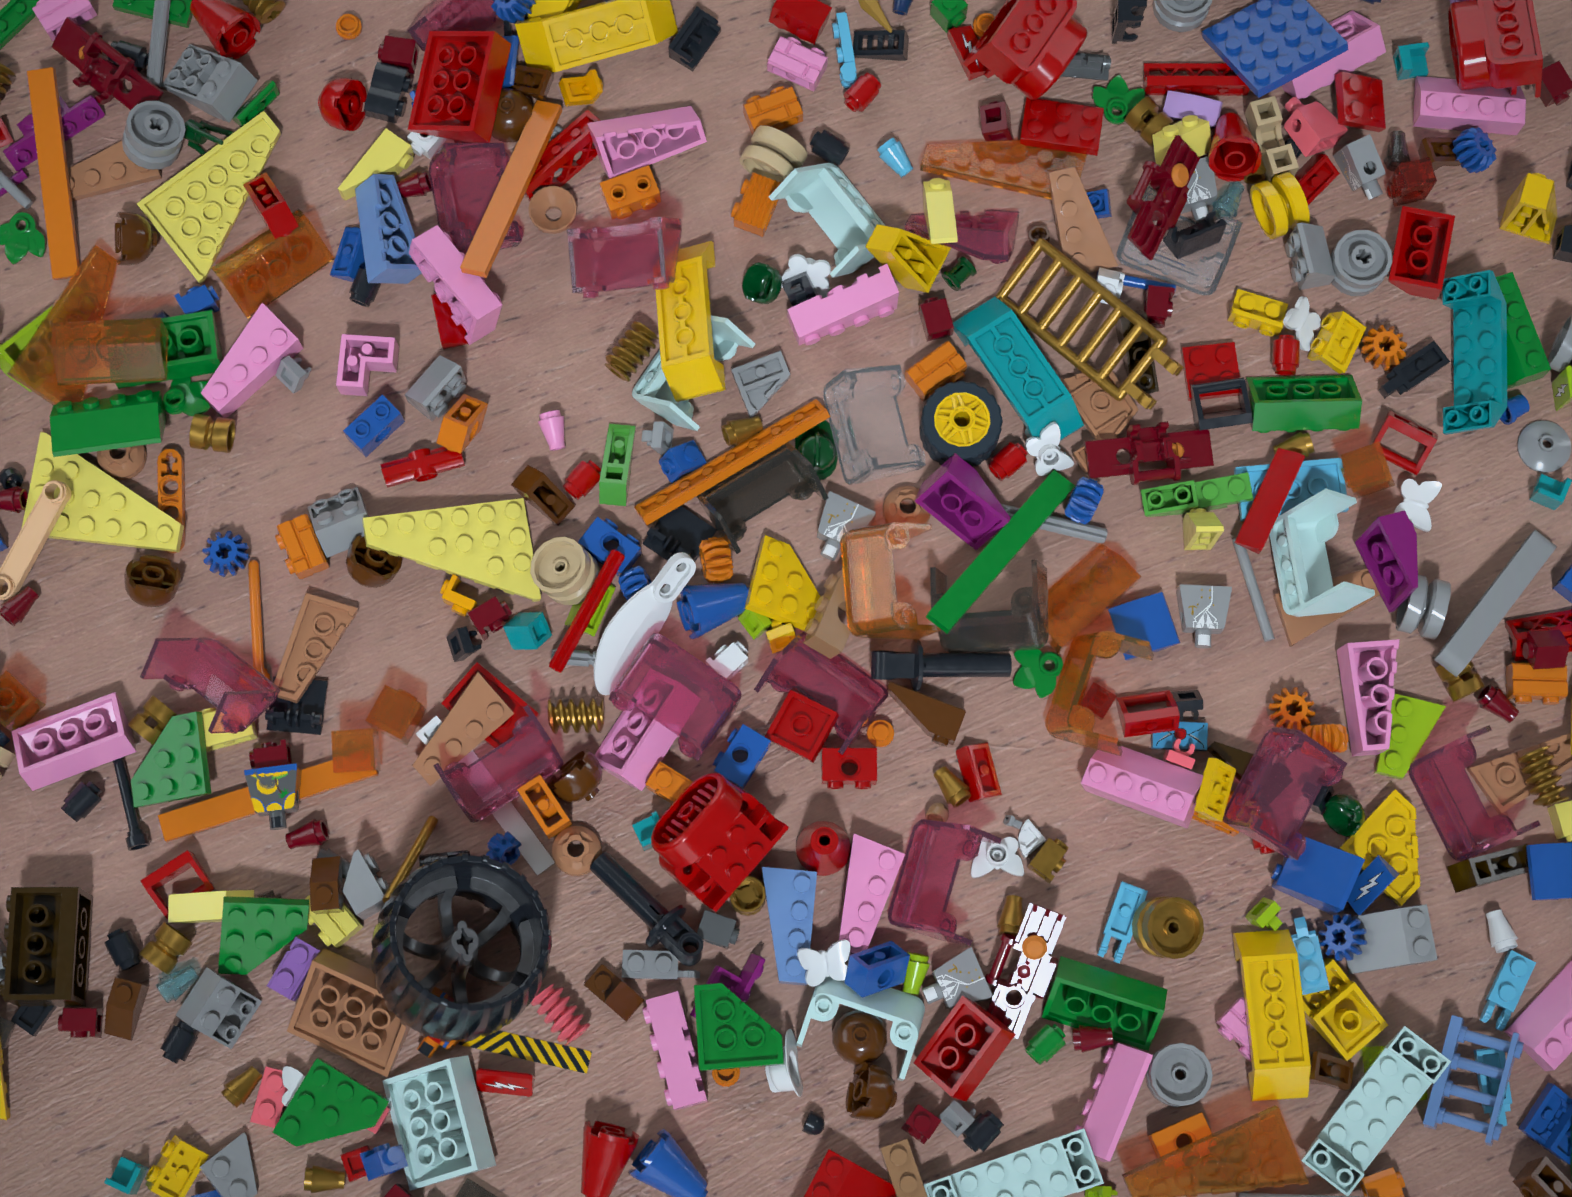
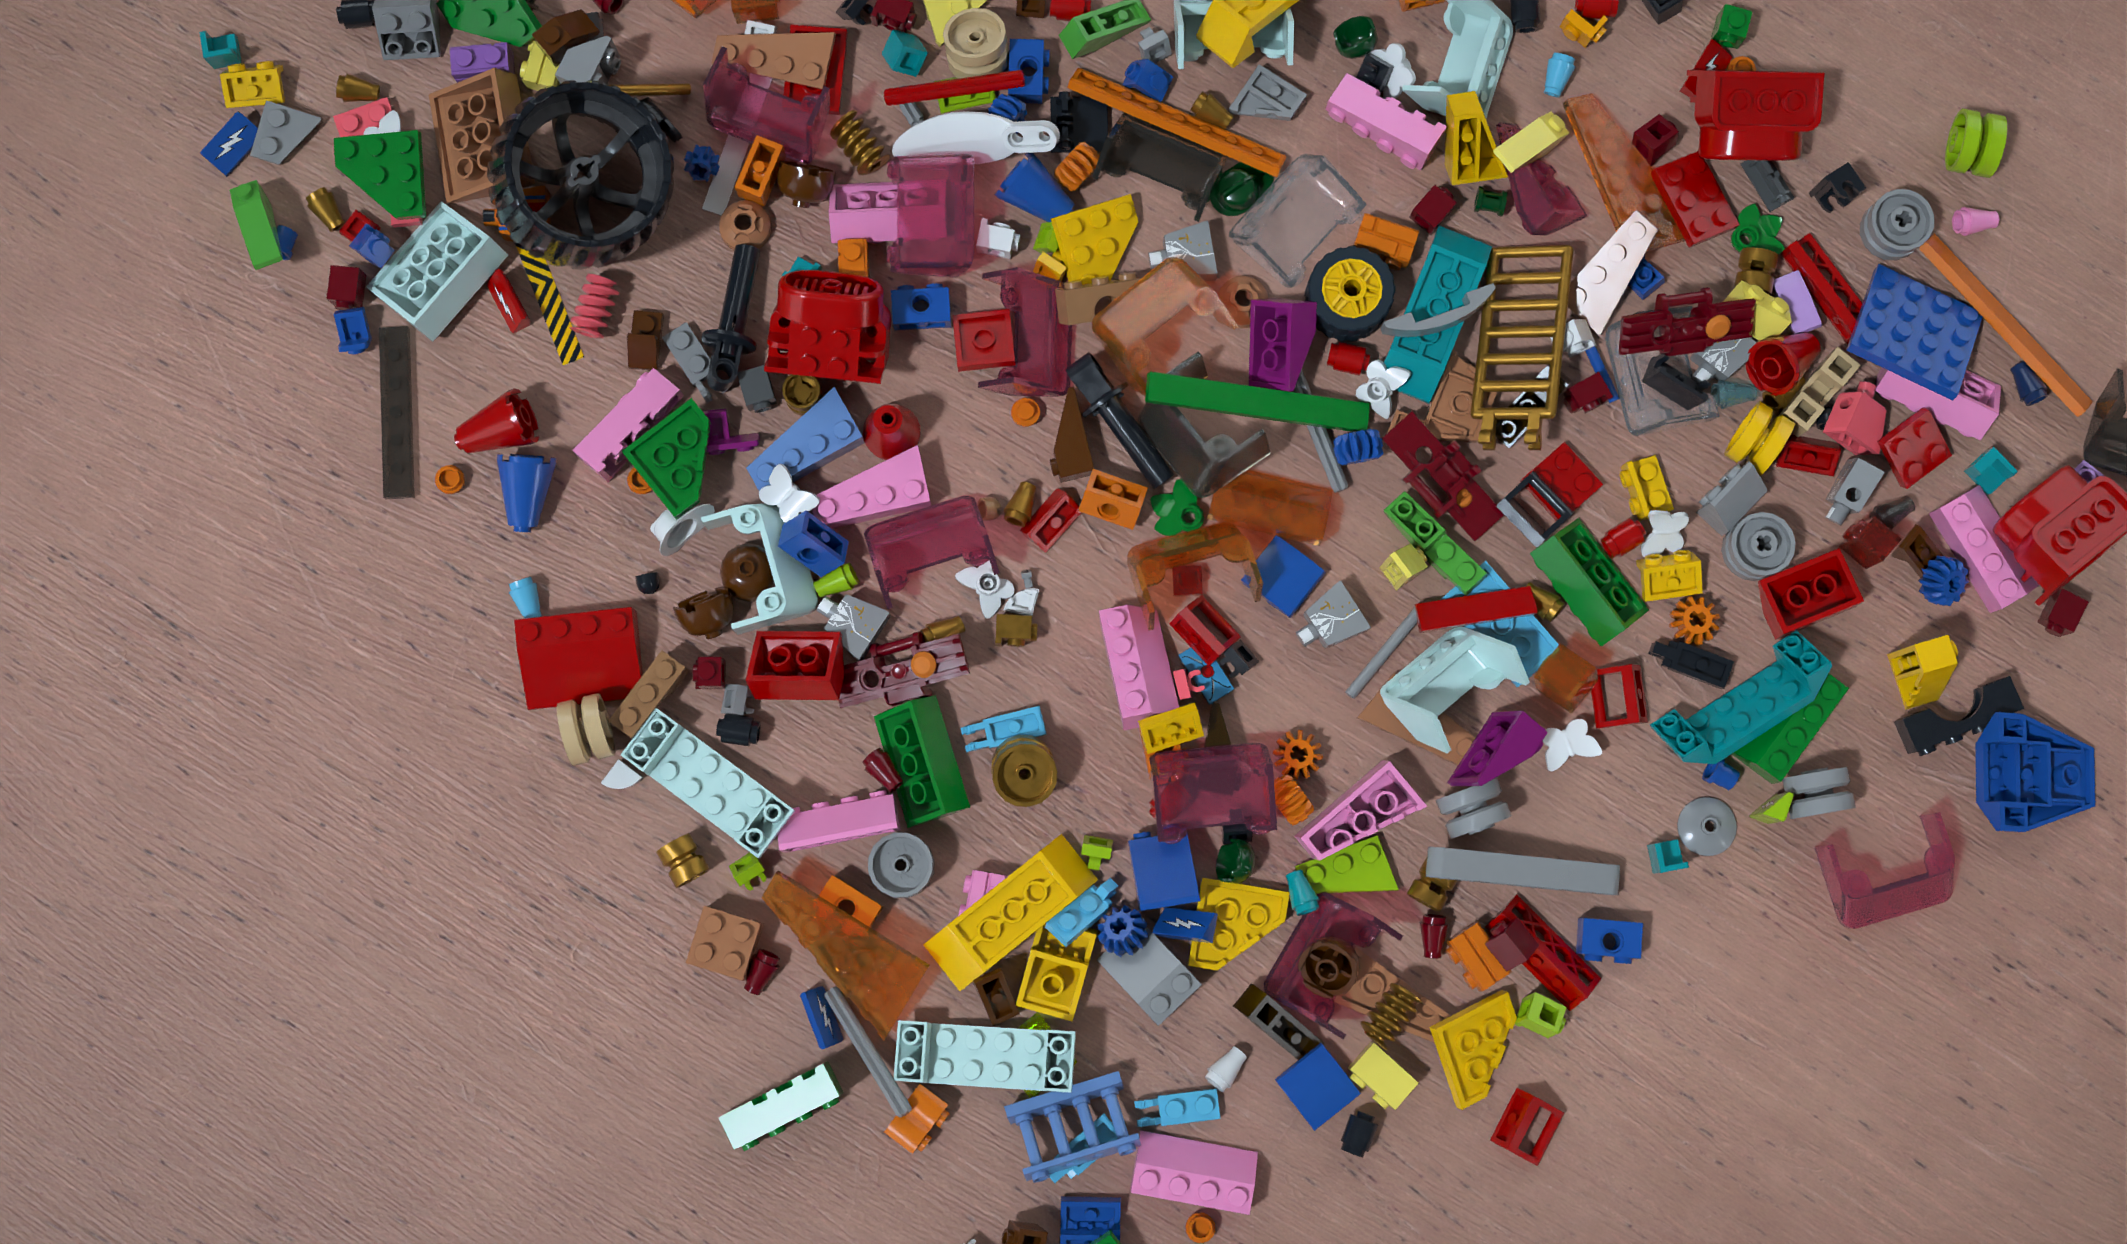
camera: 55 degrees right, 5 degrees up
(863, 758) = (980, 422): red brick -> none
(873, 118) = (1580, 30): none -> light orange bracket
(998, 712) = (1113, 499): none -> orange brick
(1036, 340) = (1406, 327): none -> light grey slope
(1039, 230) = (1581, 243): reddish brown hinge -> none
(1045, 1043) = (851, 734): green brick -> none
(1403, 780) = (1302, 895): none -> teal cone
(1476, 797) = (1329, 966): none -> reddish brown cylinder

